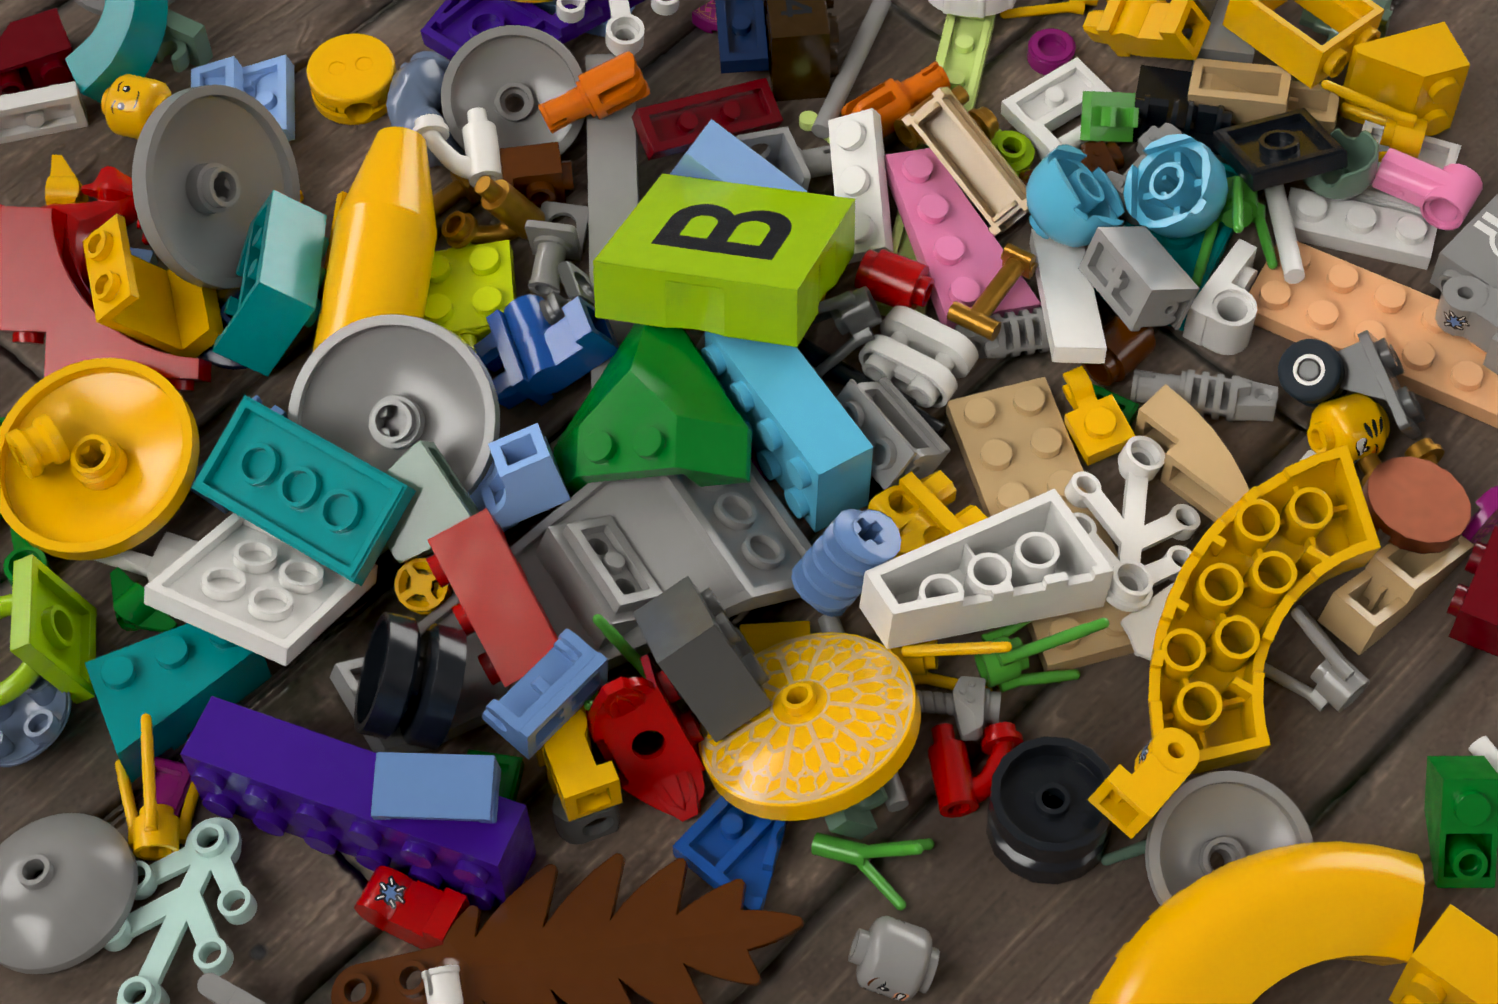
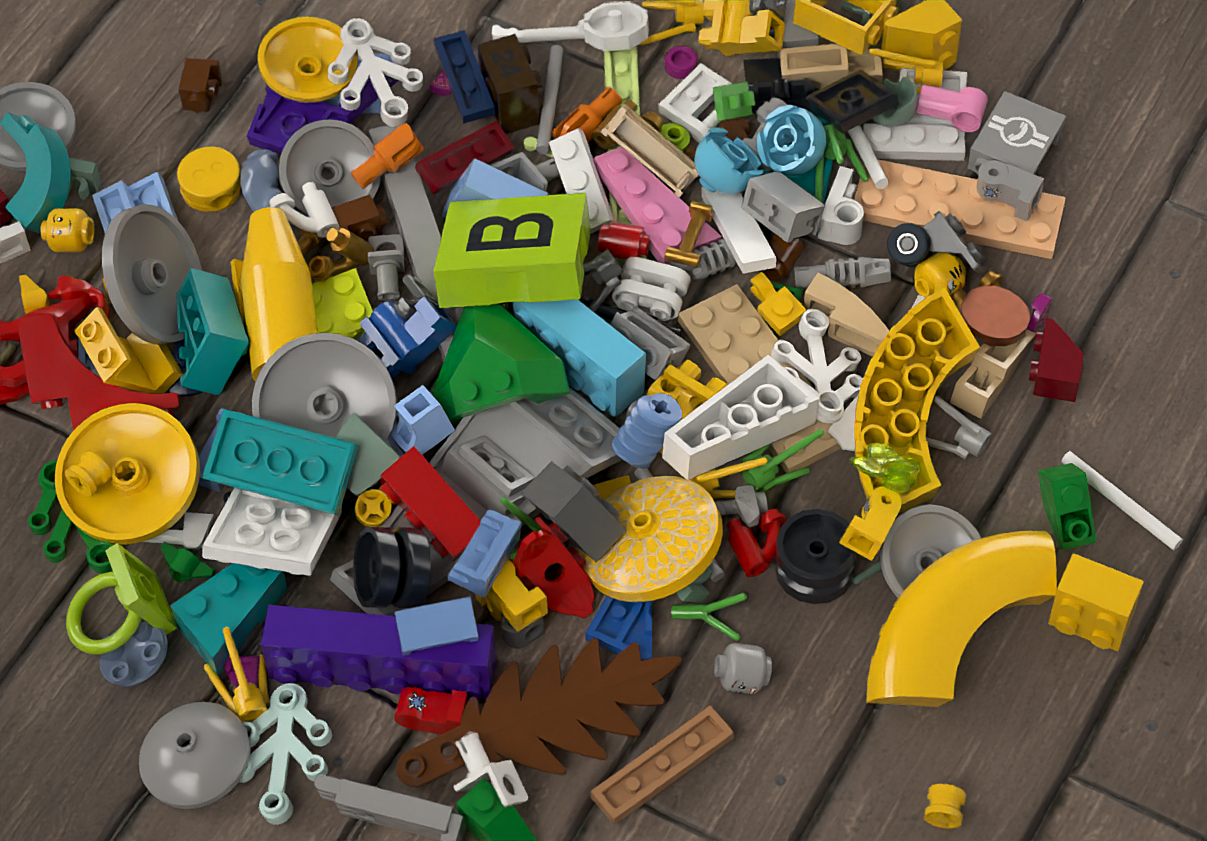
camera: 15 degrees left, 0 degrees up
(1187, 691) = (883, 462): none -> clear neon green plate

